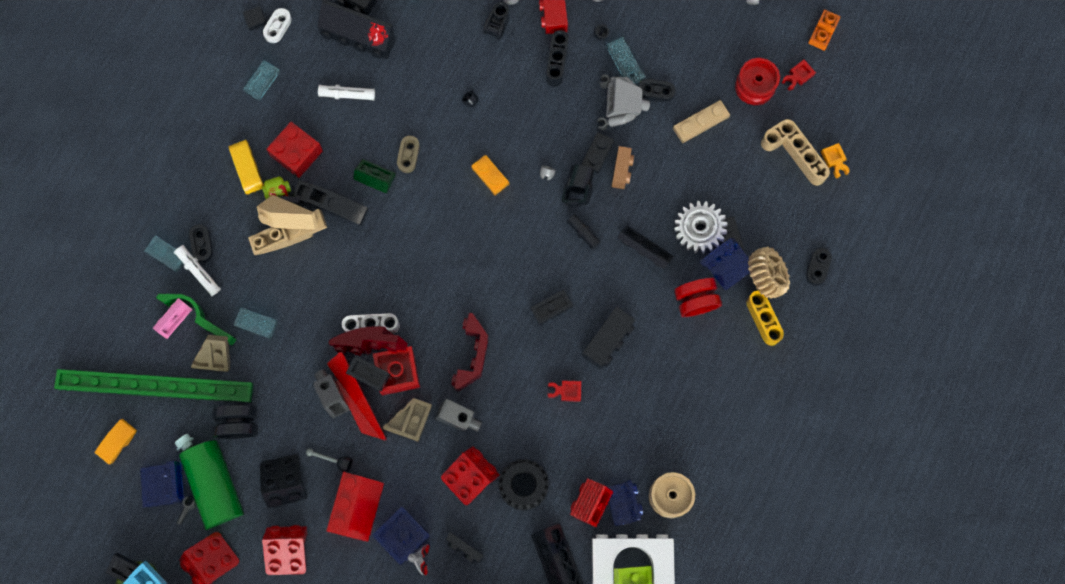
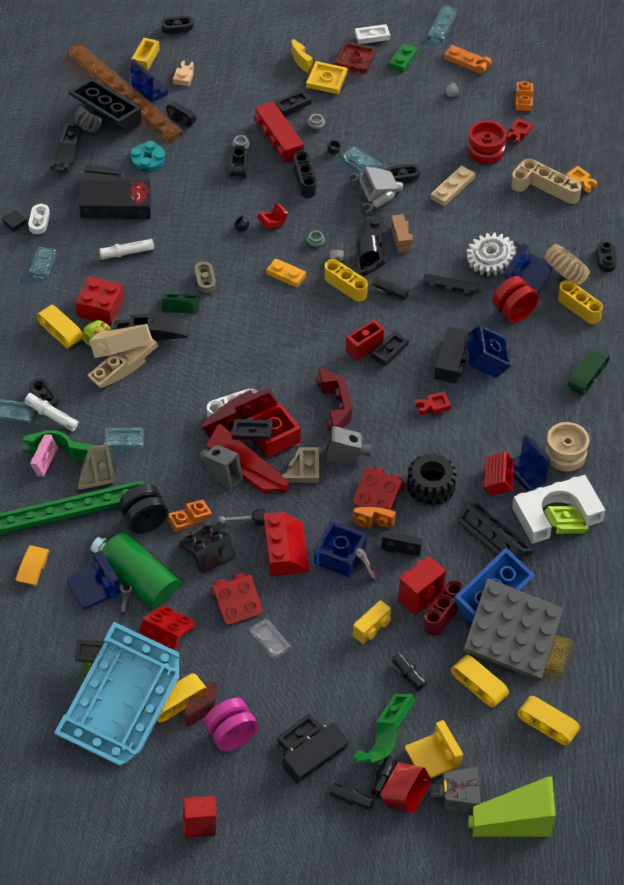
camera: 20 degrees left, 25 degrees down
(281, 436) = (190, 516): none -> orange slope
(445, 504) = (368, 515): none -> orange slope
(503, 103) = (273, 219): none -> red bracket
(529, 291) = (364, 339): none -> red brick
(535, 143) = (316, 239): none -> sand green plate
(542, 199) = (345, 280): none -> yellow beam
(642, 352) = (488, 351): none -> clear blue brick
(736, 406) = (588, 371): none -> dark green beam

